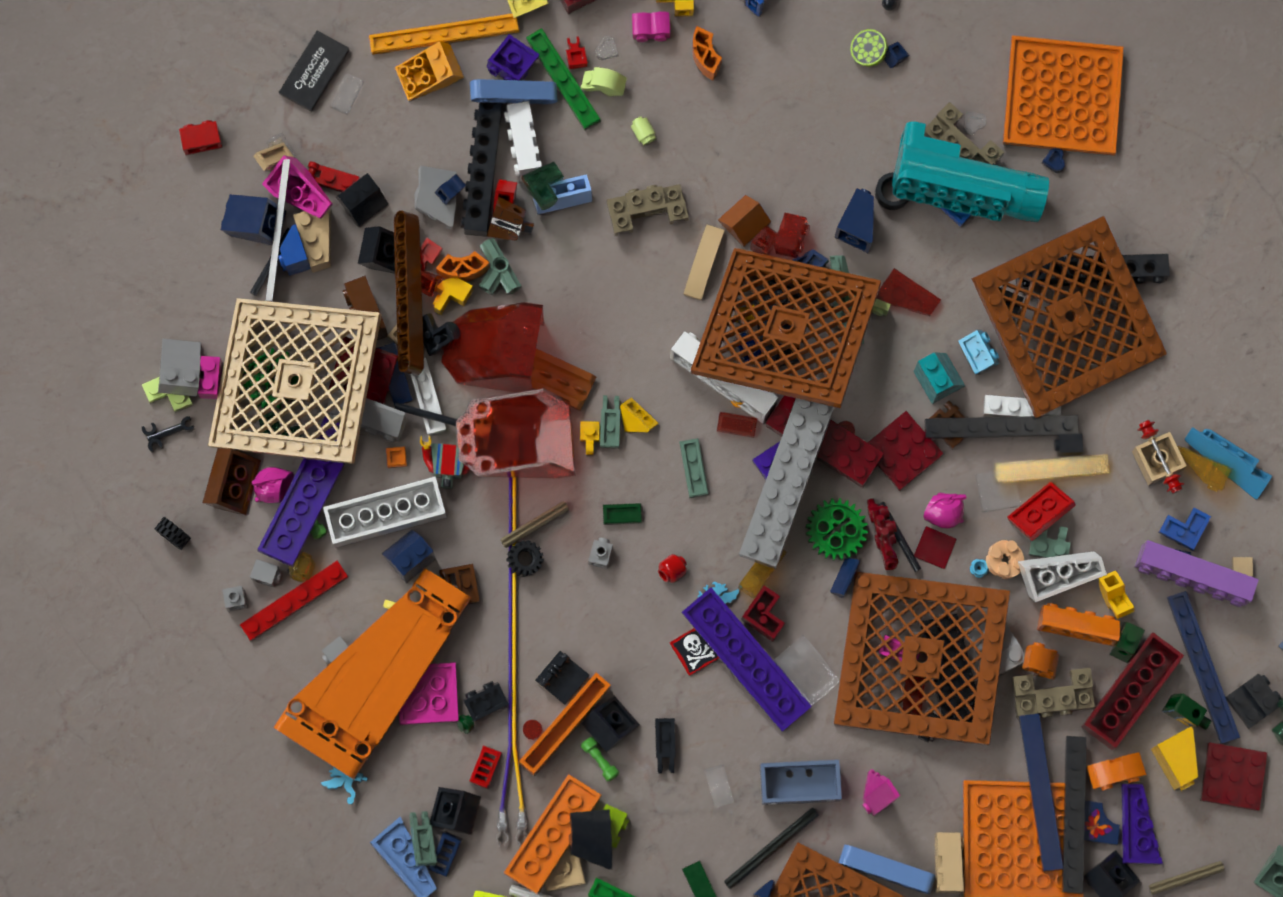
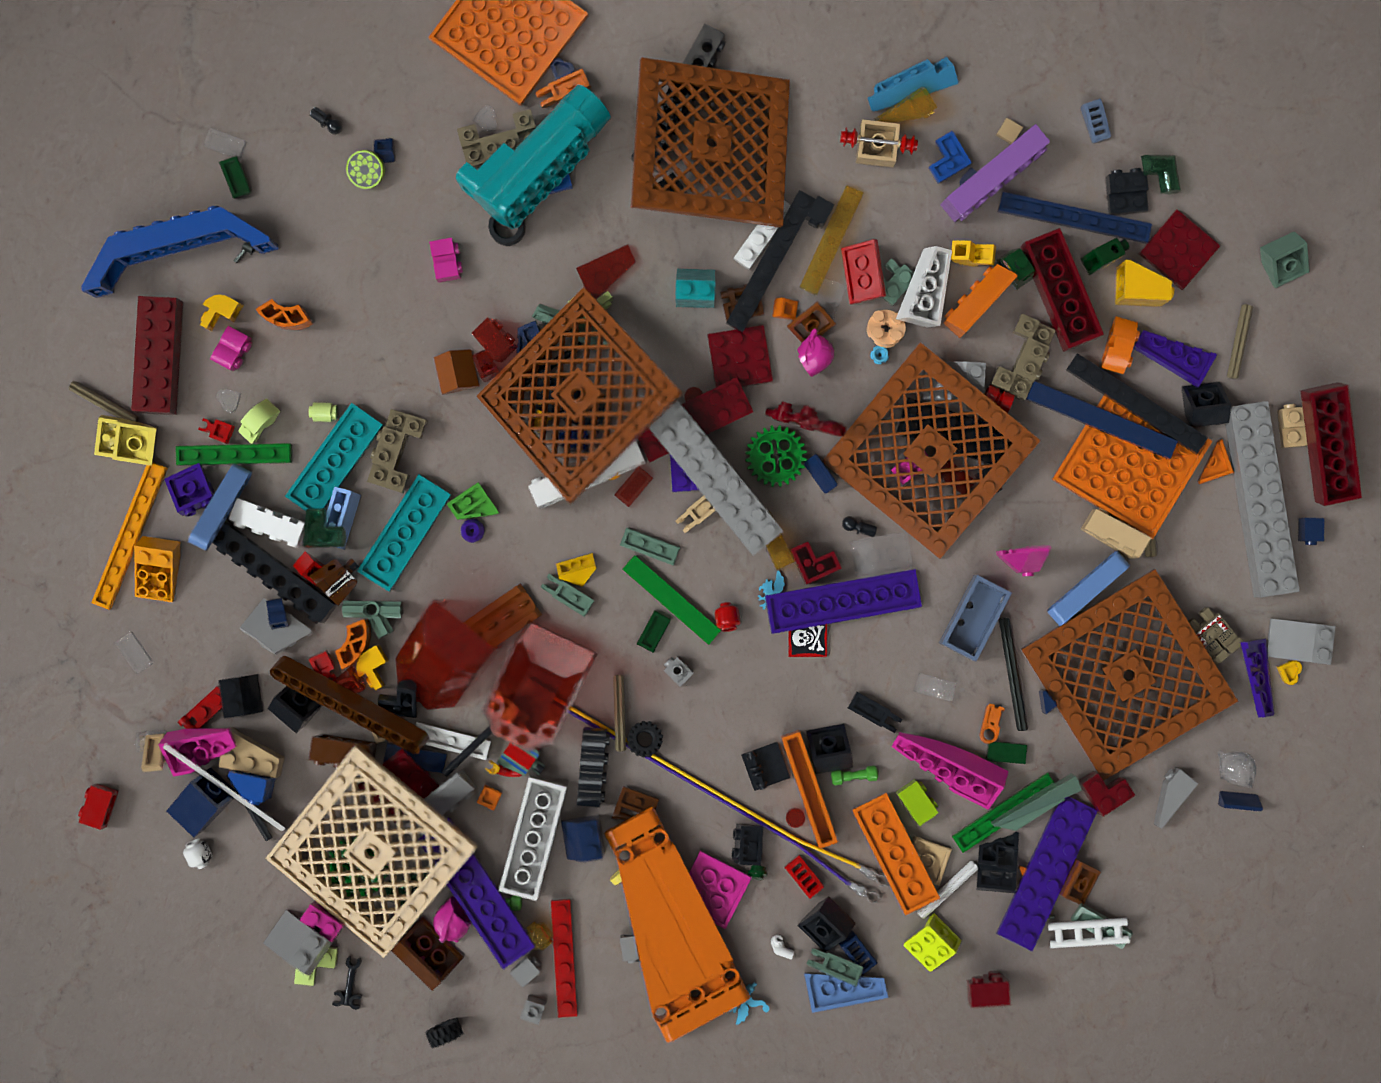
camera: 55 degrees left, 10 degrees up
(207, 241) = (197, 853): none -> white head
(314, 70) = (95, 670): black tile -> none
(410, 781) = (779, 947): none -> white arm
(473, 527) = (592, 767): none -> black brick
(581, 255) = (404, 533): none -> teal plate
(589, 433) = (566, 618): yellow plate -> none
(591, 837) = (920, 823): black slope -> none
(610, 162) = (334, 459): none -> teal plate
(614, 316) = (475, 536): none -> dark purple plate
(640, 298) = (472, 504): none -> bright green wing
(658, 513) = (671, 600): none -> green tile
(659, 853) = (961, 770): none -> dark pink wedge
(703, 262) = (472, 429): tan slope -> none
(718, 852) = (991, 721): none -> orange piece
(749, 491) = (698, 511): none -> tan hinge
(817, 628) = (850, 523): none -> black axle
(833, 157) = (445, 259): none -> dark pink brick
(857, 221) = (517, 274): dark blue slope -> none
(904, 545) = (818, 406): black bar -> none
(935, 547) = (839, 381): dark red sticker -> none
(969, 464) = (785, 308): none -> orange slope
(976, 491) = (812, 318): none -> dark orange slope
(979, 351) = (692, 239): medium azure bracket -> none
(1004, 695) = (1003, 400): none -> red wheel
(1041, 168) = (562, 87): none -> orange hinge
(1041, 661) = (992, 351): orange brick -> none
(1097, 826) = (1155, 388): tile -> none

